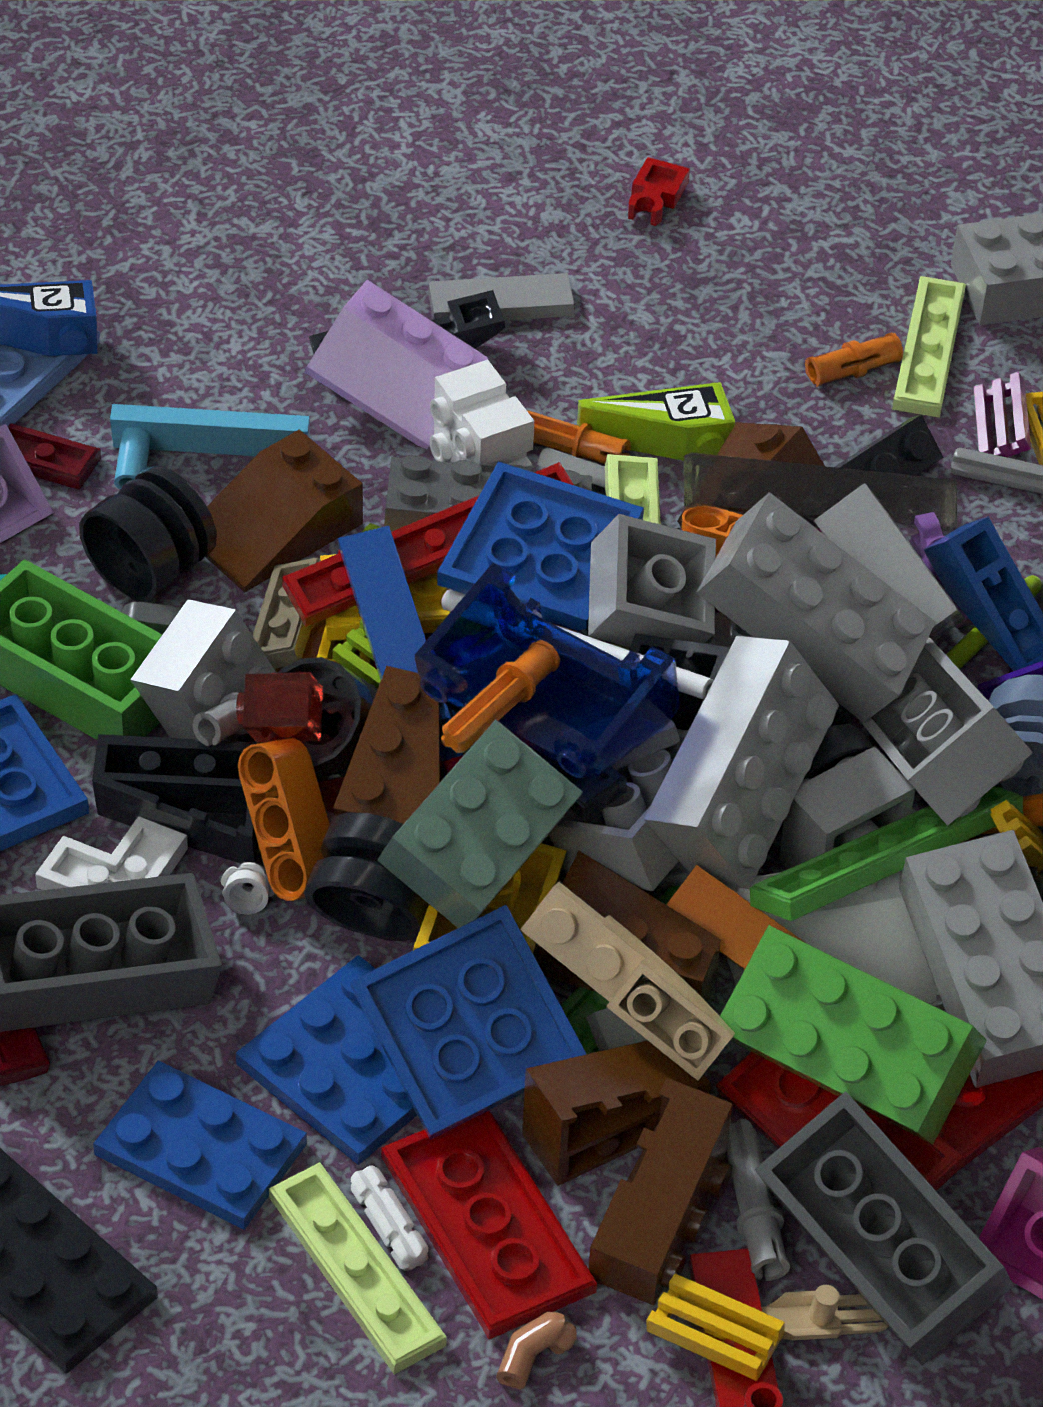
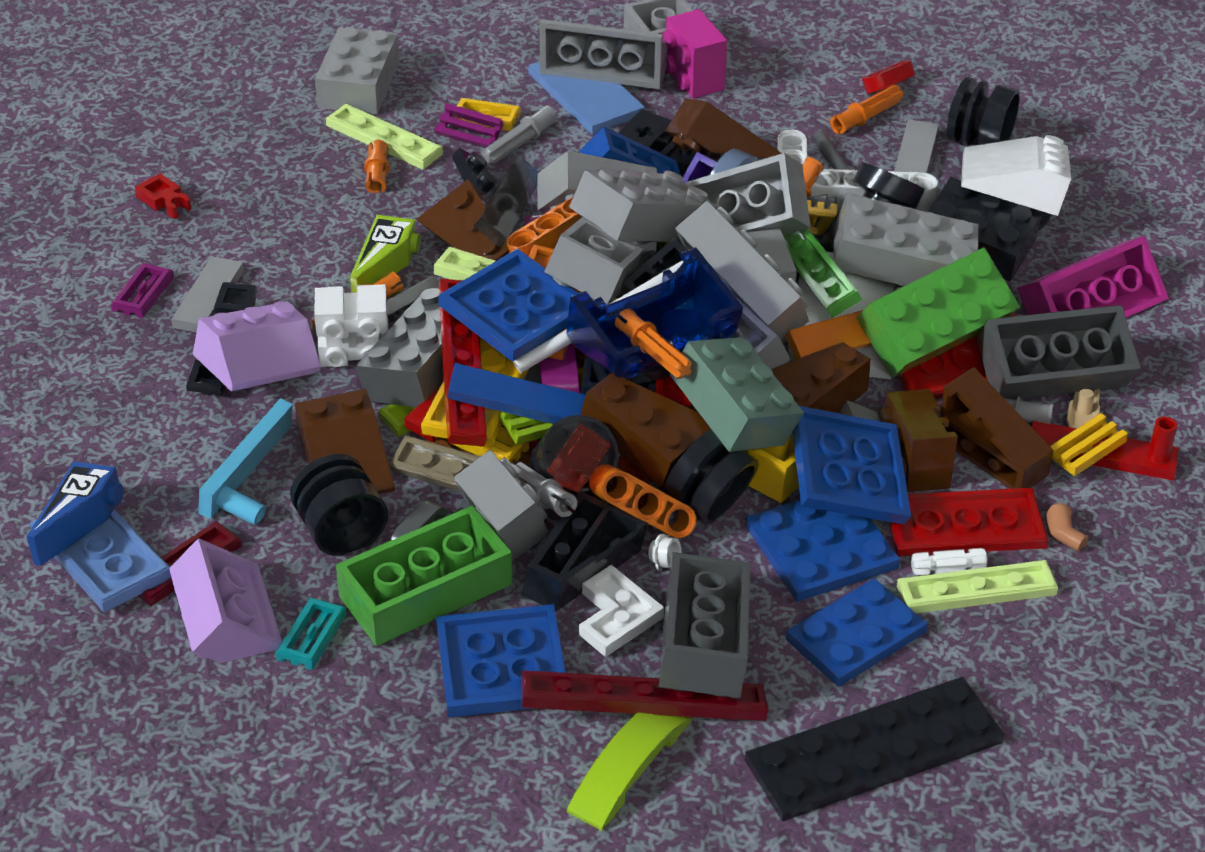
camera: 65 degrees left, 5 degrees down
(475, 246) = (147, 292): none -> magenta tile
(631, 978) = (865, 381): tan slope -> none

